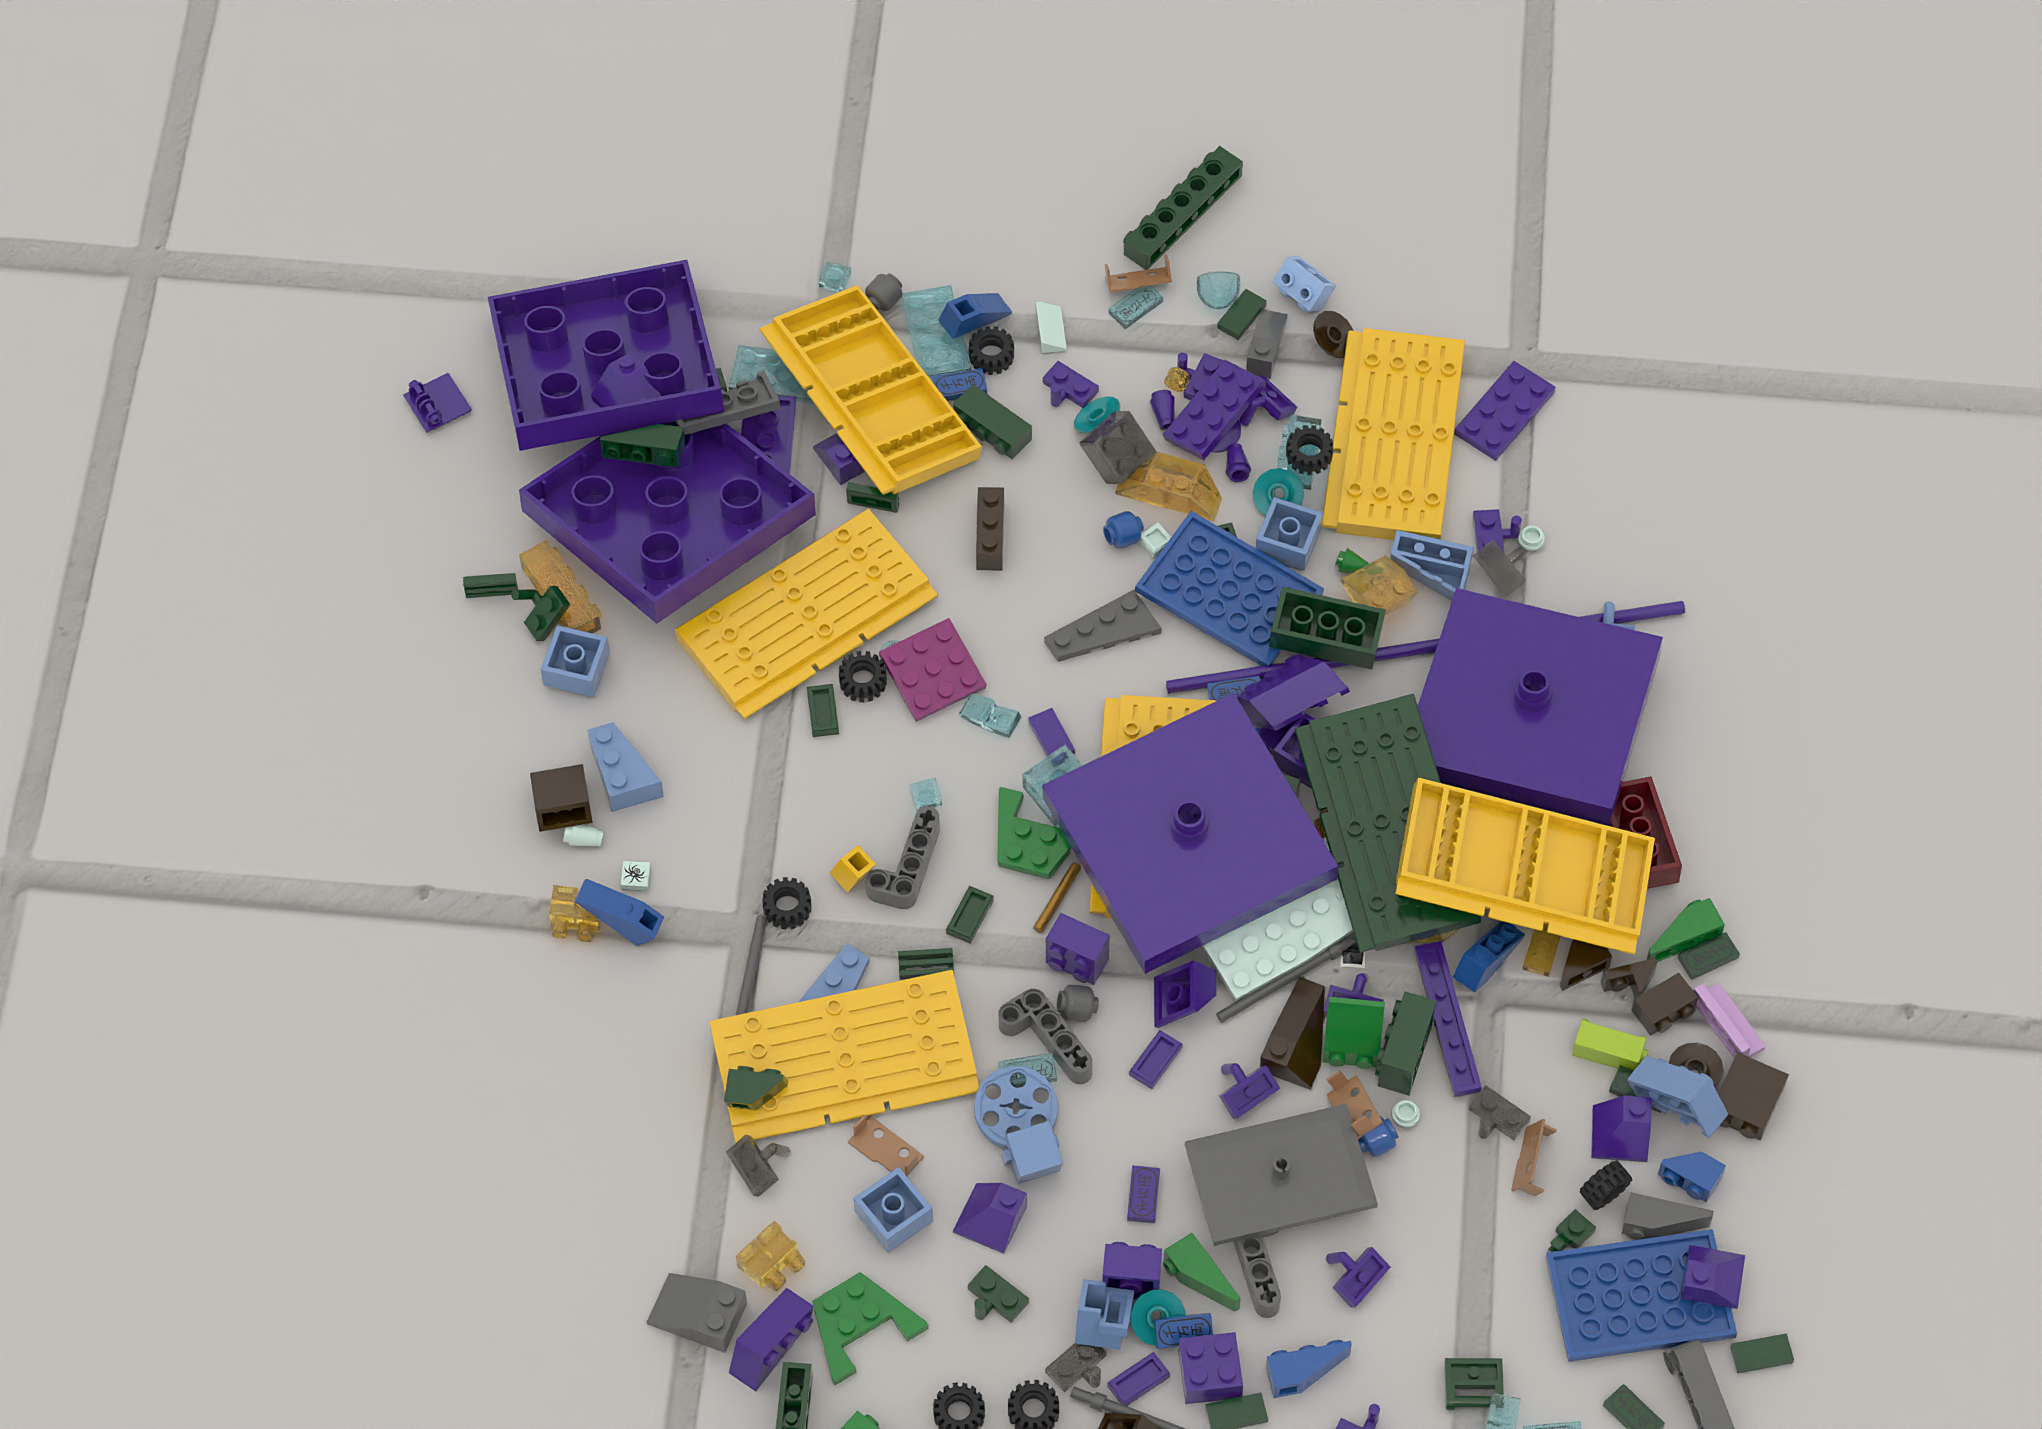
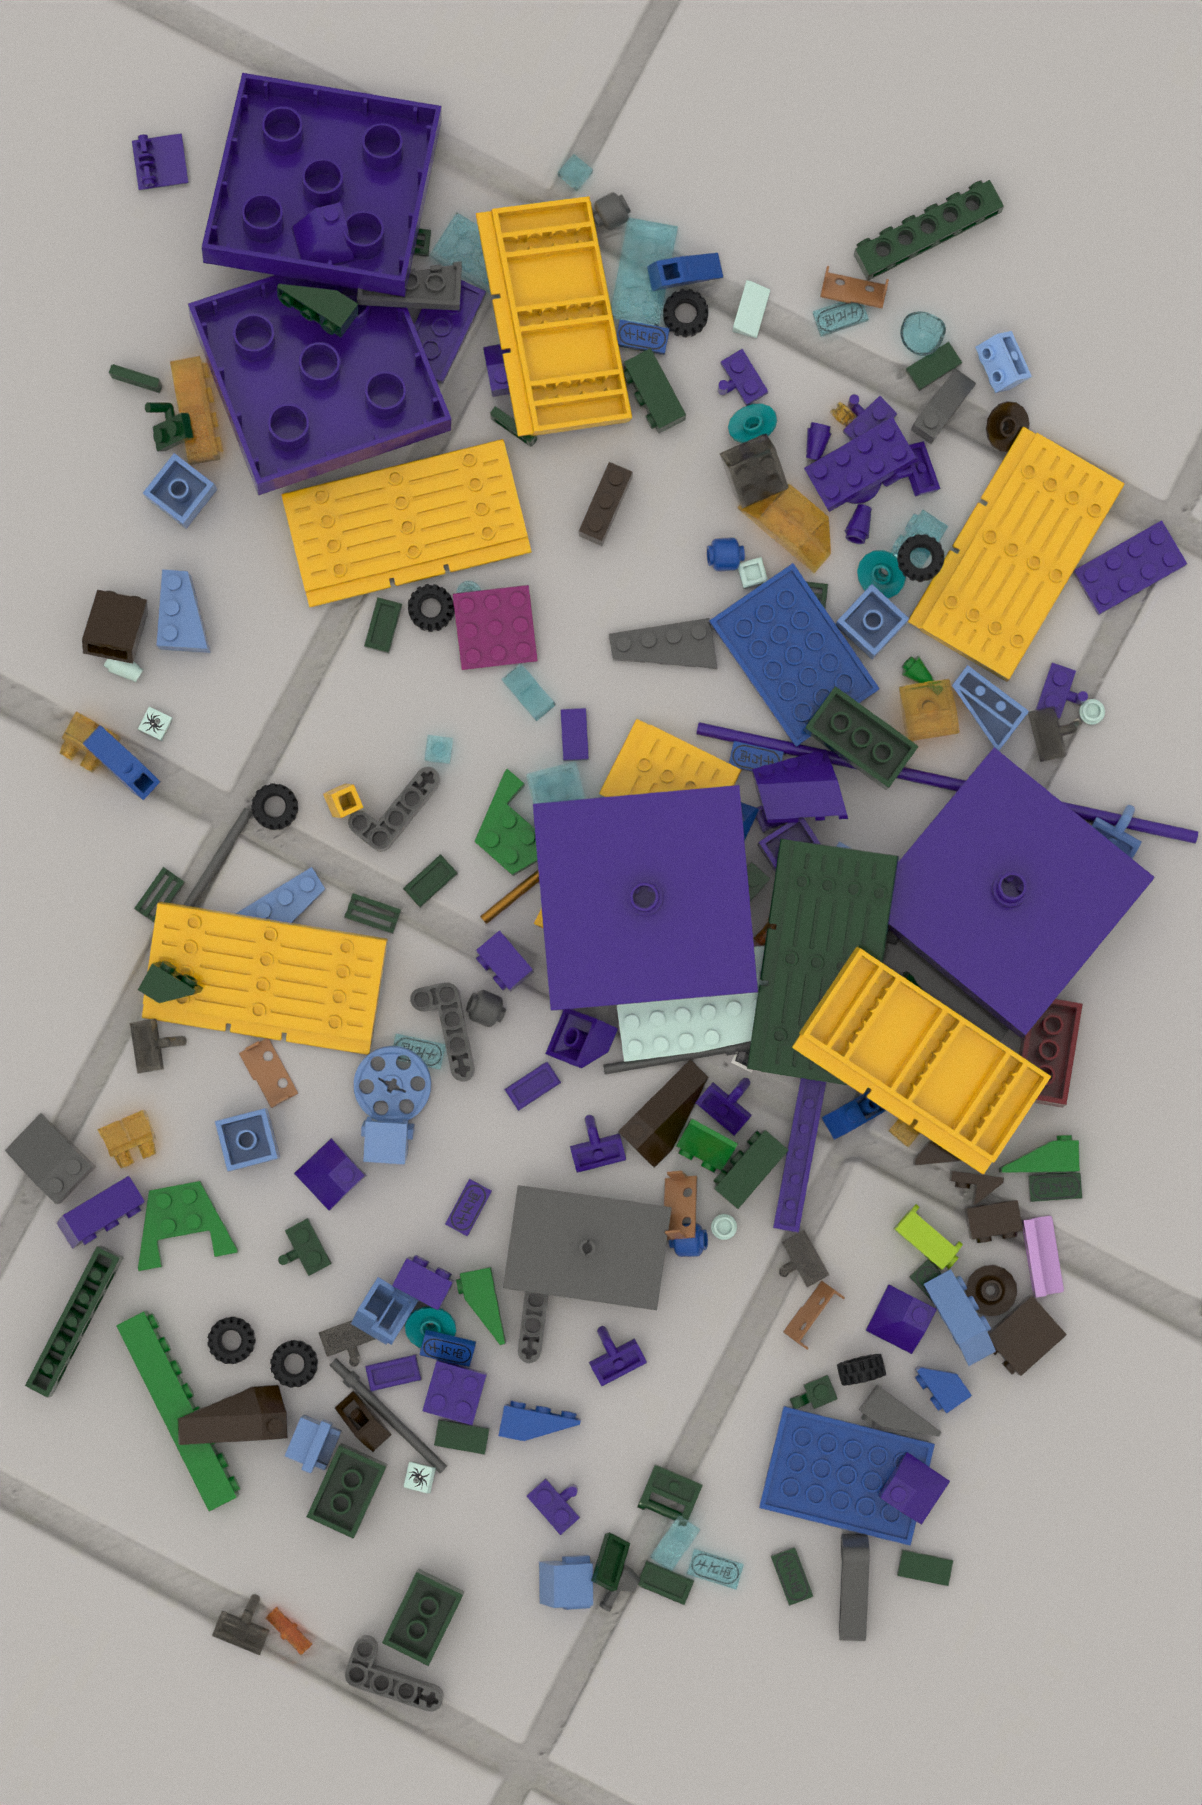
camera: 25 degrees right, 25 degrees up
(710, 1006) = (139, 907): none -> dark green tile

